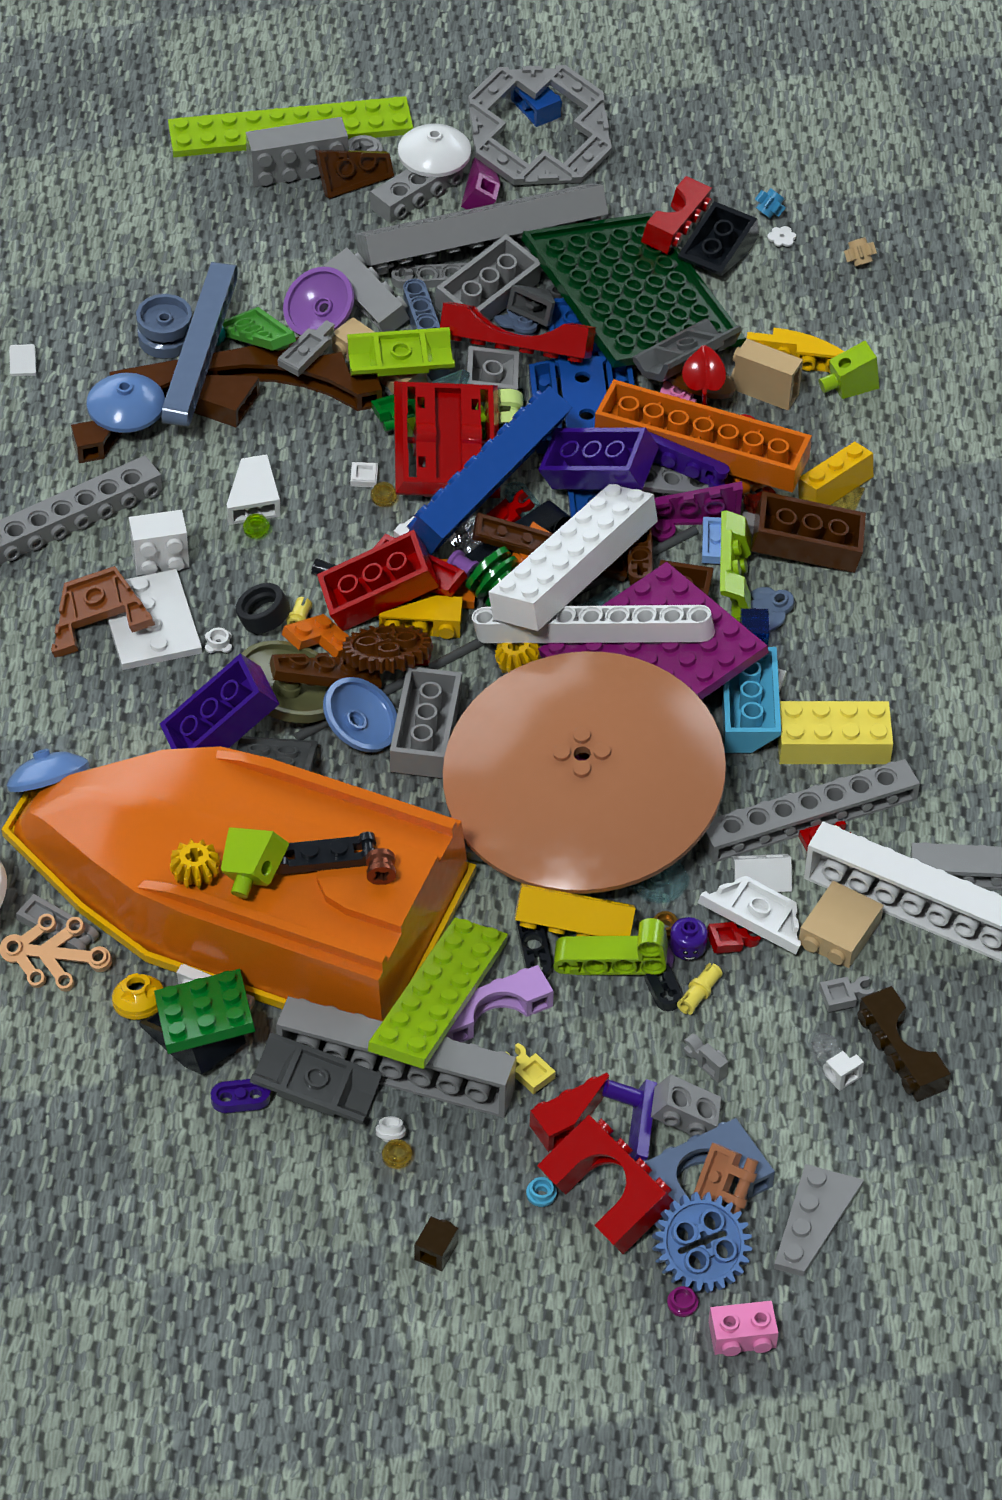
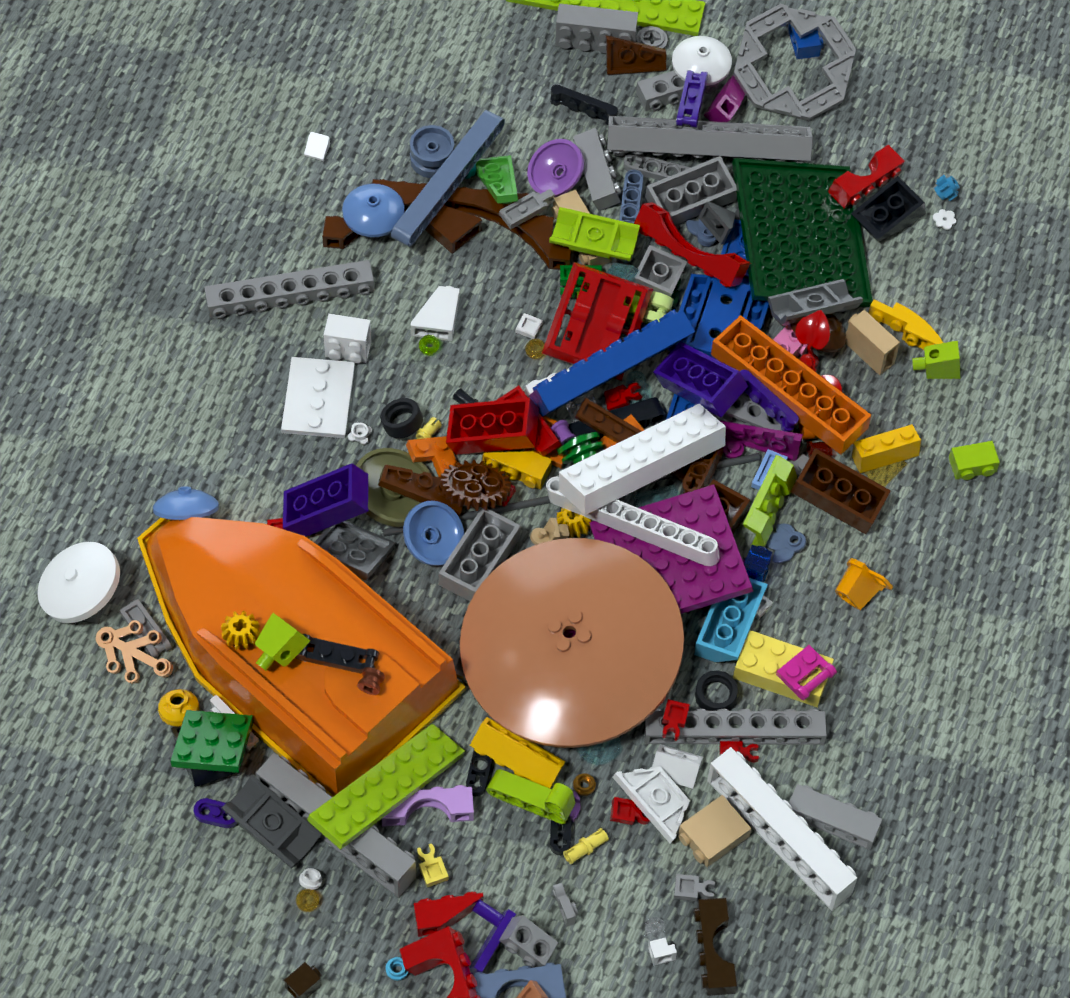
camera: 20 degrees right, 10 degrees up
(95, 599) = (281, 370): dark orange wing -> none
(316, 232) = (583, 103): none -> black plate
(446, 186) = (692, 98): none -> dark purple plate
(498, 667) = (550, 532): none -> tan hips
(688, 938) = (594, 803): dark purple head -> none
(740, 814) = (675, 717): none -> red plate
(764, 765) = (721, 677): none -> black tyre
(859, 717) = (801, 667): none -> dark pink plate
(860, 251) = (998, 254): tan gear -> none
(878, 617) = (860, 584): none -> light orange container
(938, 461) = (974, 460): none -> lime brick

